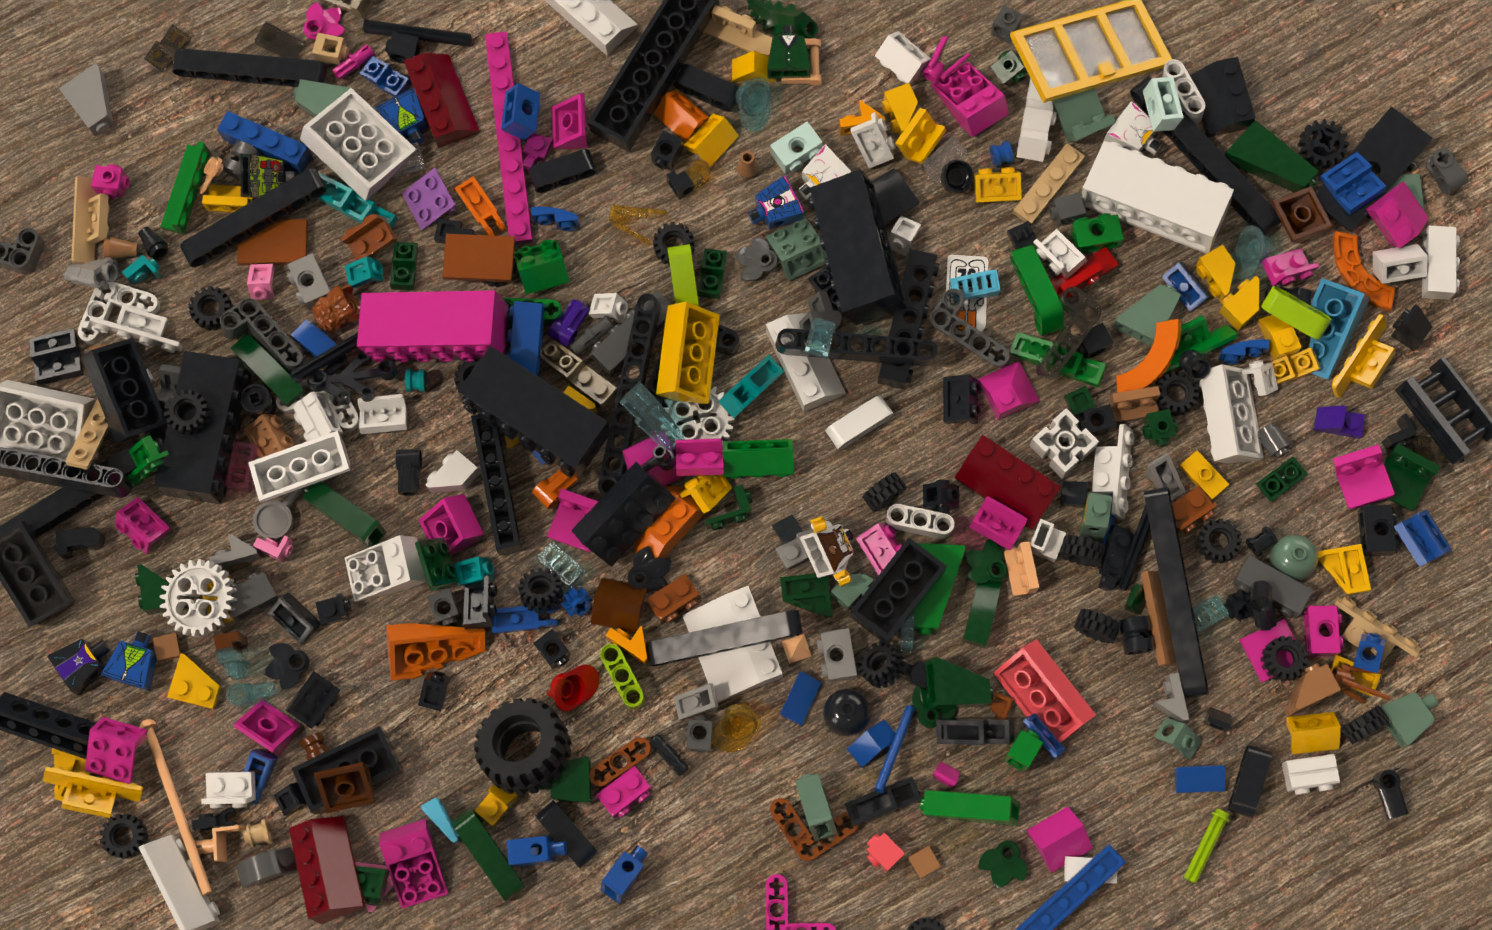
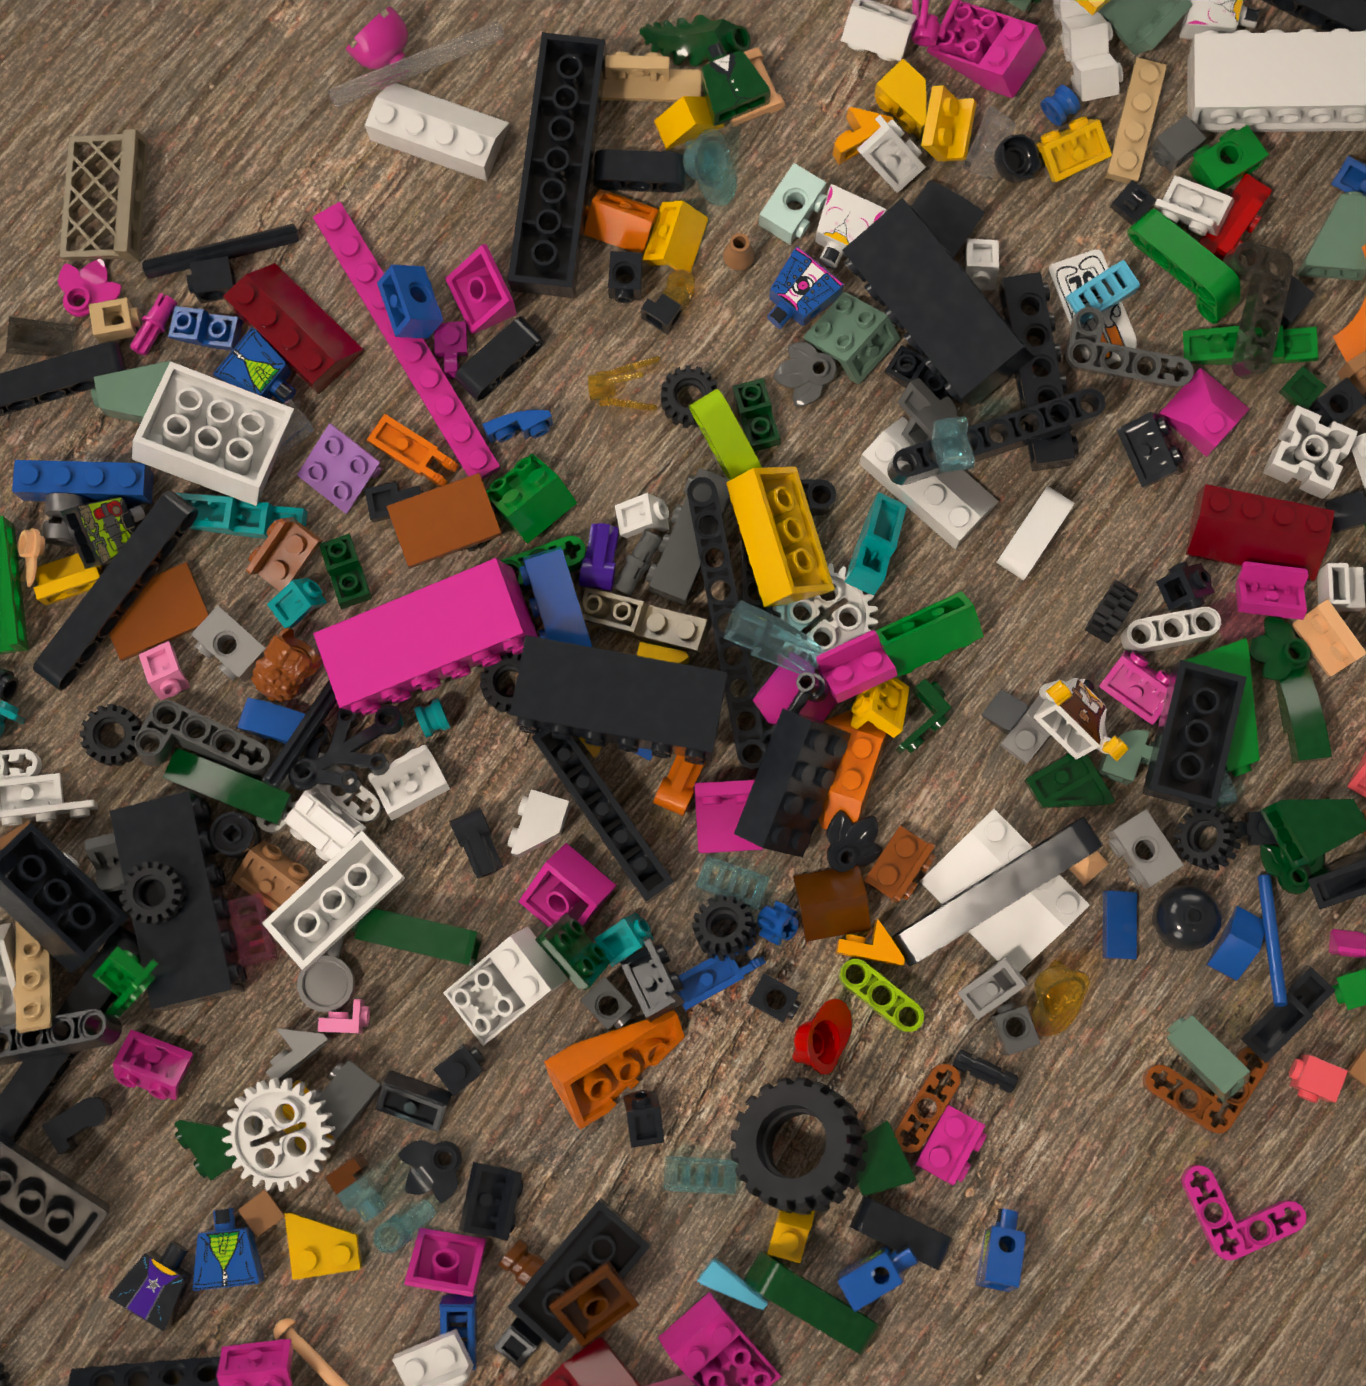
camera: 25 degrees left, 5 degrees up
(451, 750) = (671, 1172): none -> clear light blue slope

